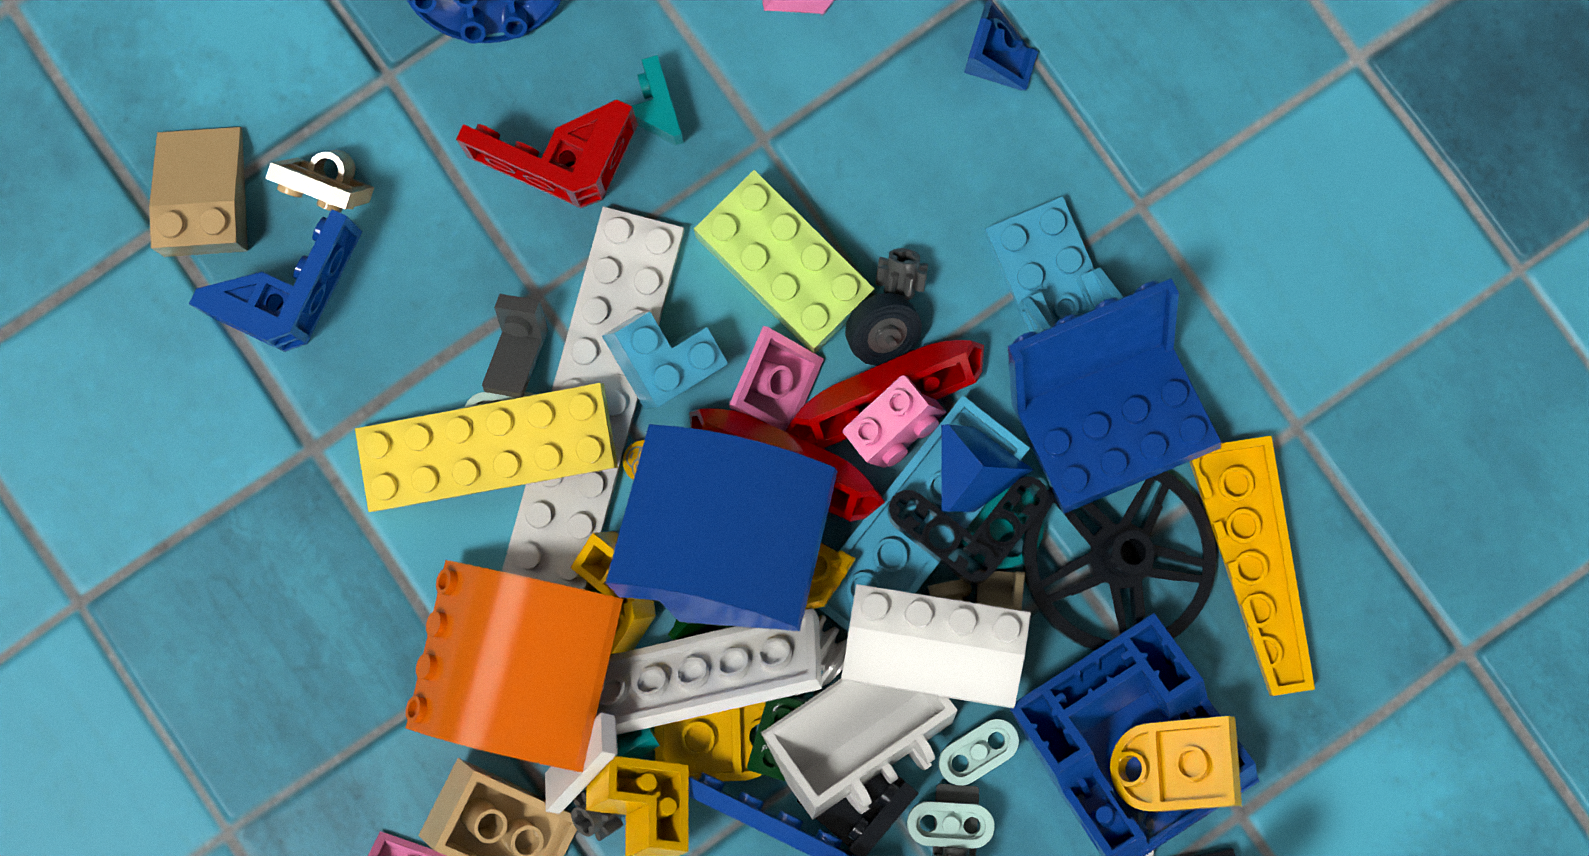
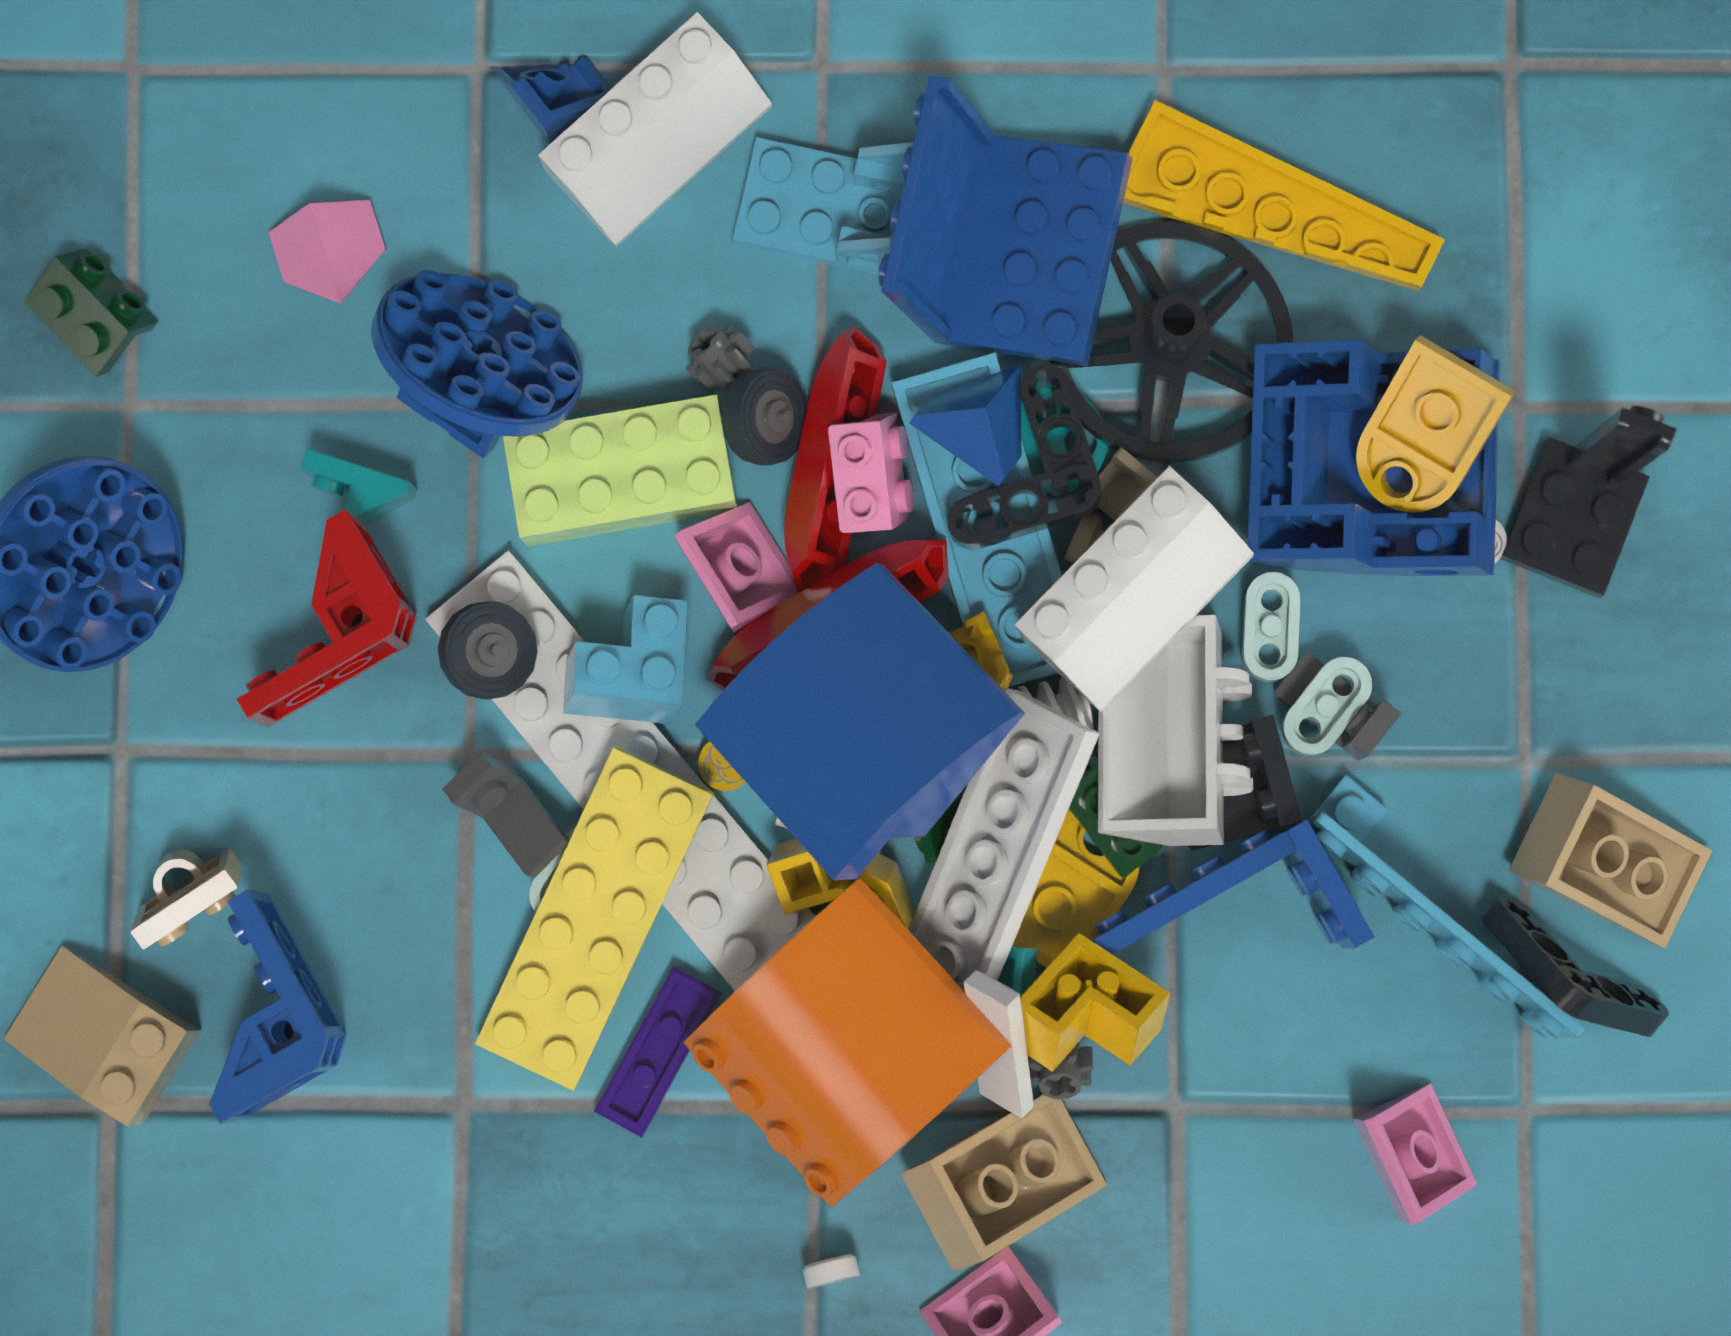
camera: 50 degrees left, 0 degrees up
(365, 756) = (830, 1271): none -> white tile
(429, 547) = (657, 1052): none -> dark purple tile
(607, 259) = (487, 650): none -> black wheel
(790, 119) = (475, 358): none -> blue bracket
(1021, 129) = (655, 130): none -> white slope

